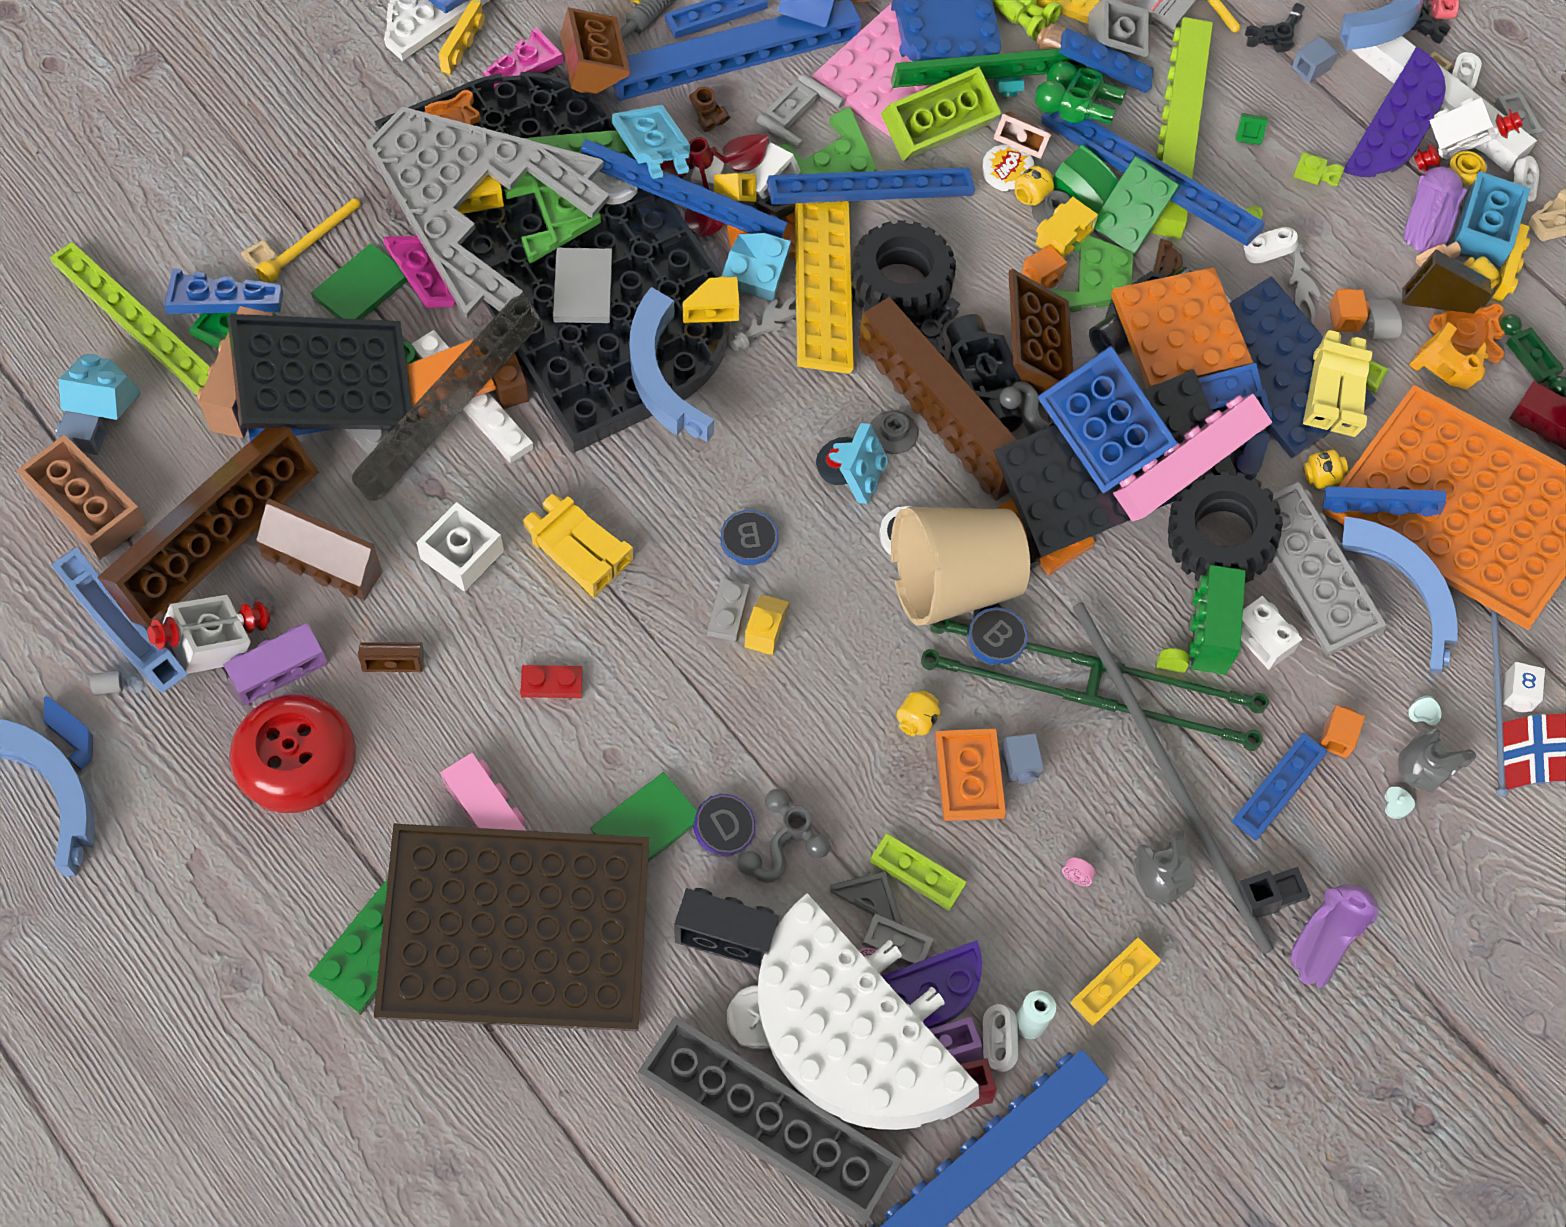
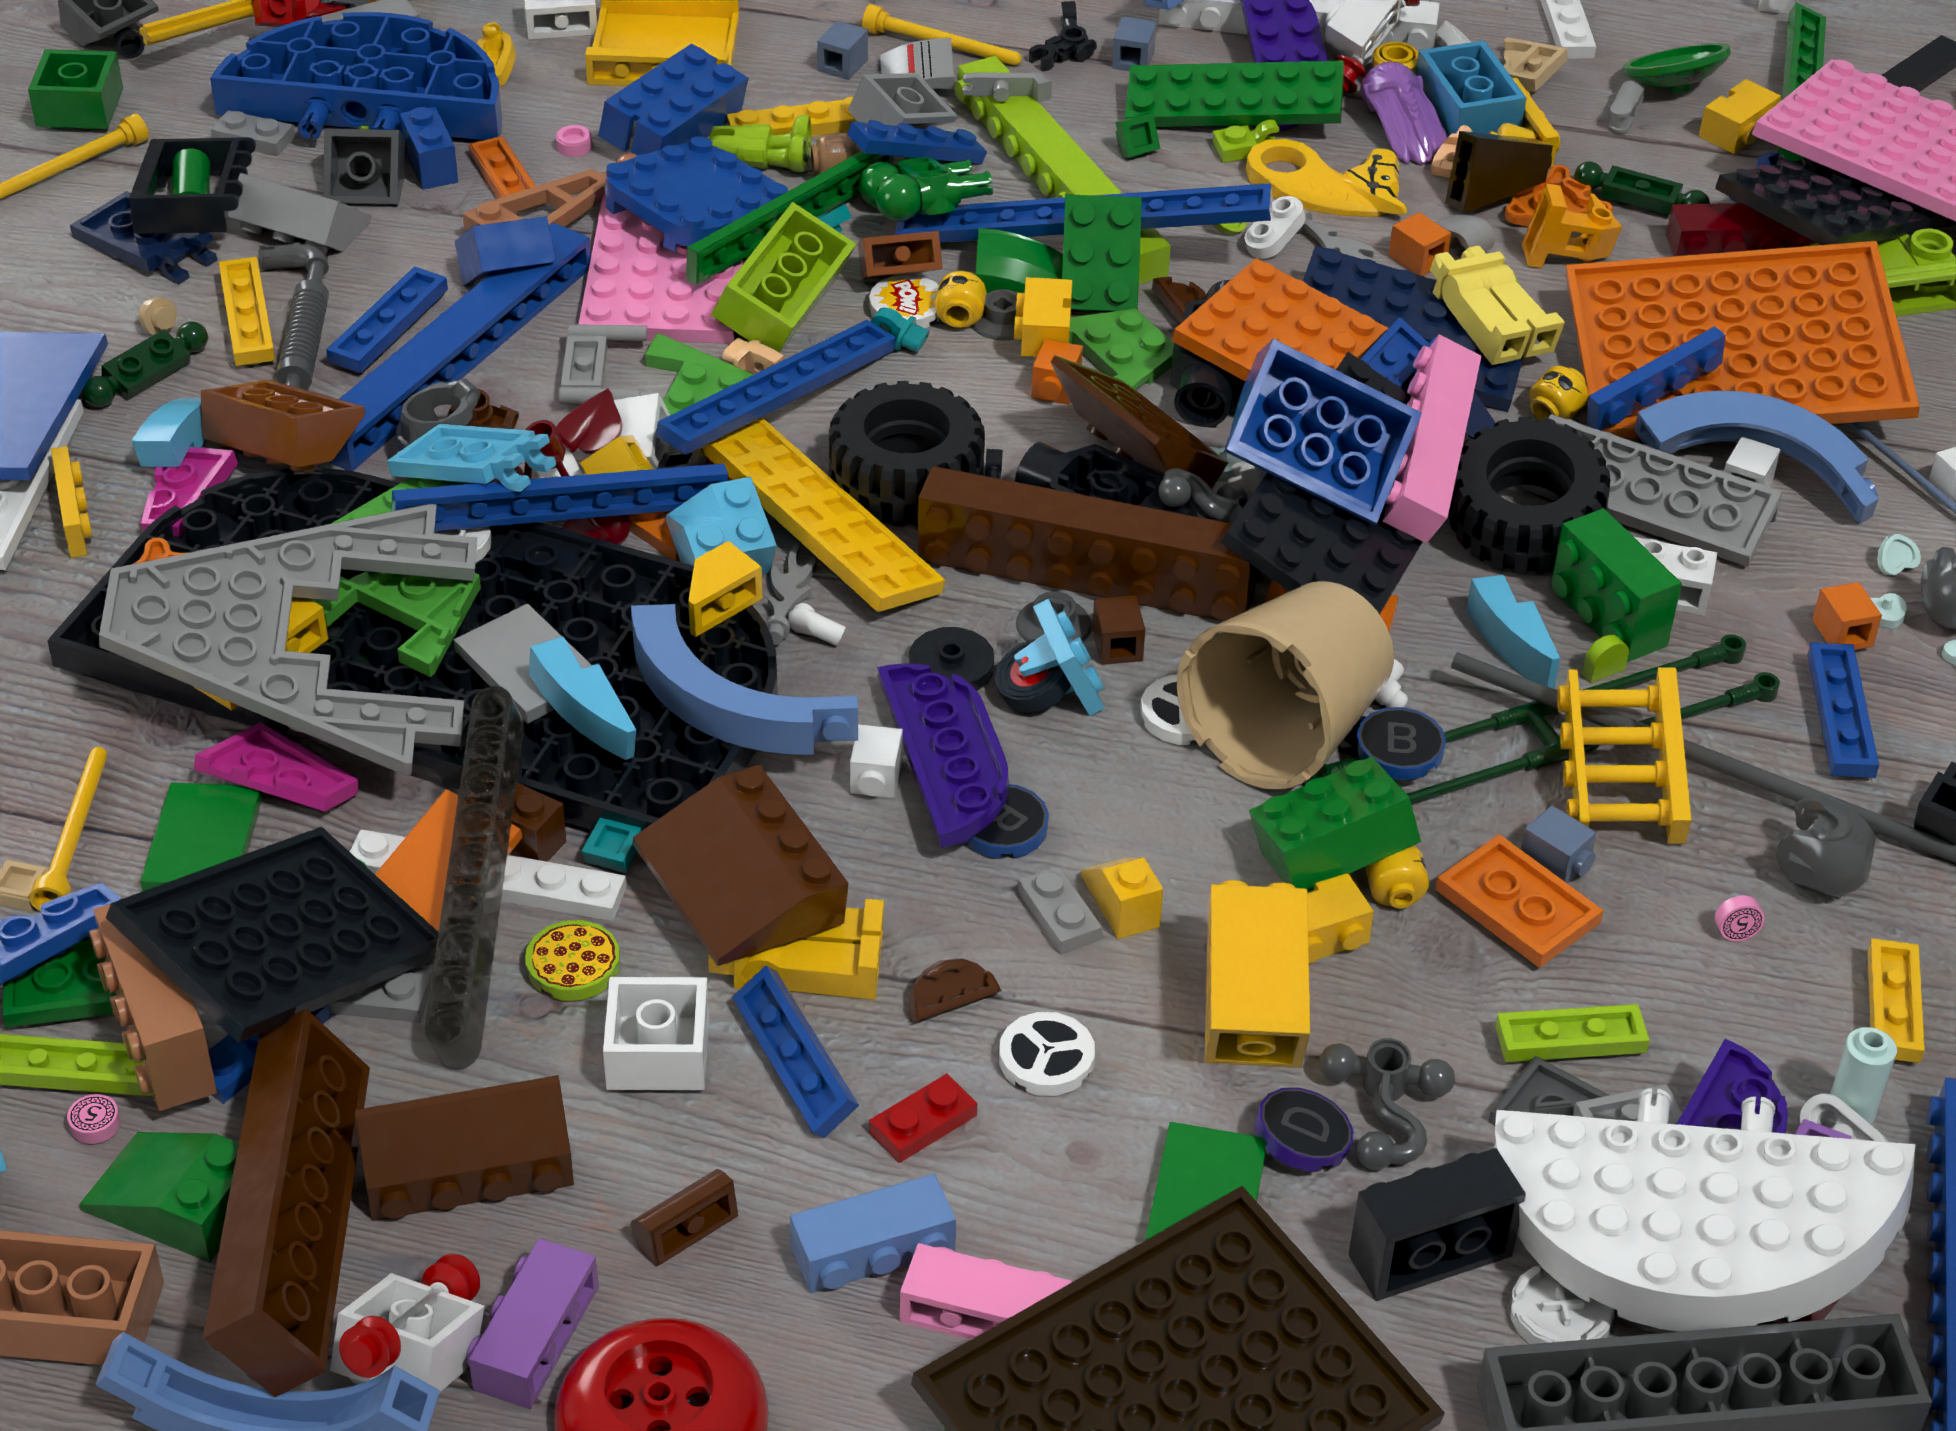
camera: 35 degrees left, 20 degrees down
(181, 469) = (169, 1189): none -> green slope
(187, 413) = (93, 1119): none -> bright pink tile
(464, 729) = (870, 1232): none -> medium blue brick
(468, 474) = (572, 960): none -> tile
(520, 602) = (795, 1052): none -> blue plate
(541, 420) = (611, 845): none -> teal plate
(542, 22) = (169, 433): none -> medium azure slope
(572, 482) = (743, 867): none -> reddish brown slope
(582, 325) = (582, 697): none -> medium azure slope
(629, 617) = (948, 986): none -> reddish brown plate
(643, 688) = (1046, 1053): none -> white tile
(666, 93) = (419, 415): none -> dark grey helmet
(713, 459) = (876, 761): none -> white brick
(753, 477) = (948, 749): none -> dark purple plate
(759, 347) = (808, 622): none -> white arm
(772, 722) = (1257, 975): none -> yellow slope
(813, 432) = (955, 652): none -> black plate
(847, 713) = (1337, 917): none -> yellow brick
(885, 153) = (751, 355): none -> light nougat piece
(901, 664) = (1335, 824): none -> green brick
(916, 460) = (1118, 629): none -> reddish brown brick
(984, 189) = (907, 332): none -> teal piece
(1033, 590) = (1391, 695): none -> white arm
(1121, 758) = (1664, 735): none -> yellow fence
(1137, 606) = (1513, 629): none -> medium azure slope
(1194, 49) = (1008, 84): none -> light grey piece
(1334, 233) = (1359, 191): none -> yellow animal
(1338, 134) = (1237, 93): none -> green plate
(1381, 740) = (1892, 609): none -> light aqua piece
(1393, 594) = (1753, 461): none -> white brick

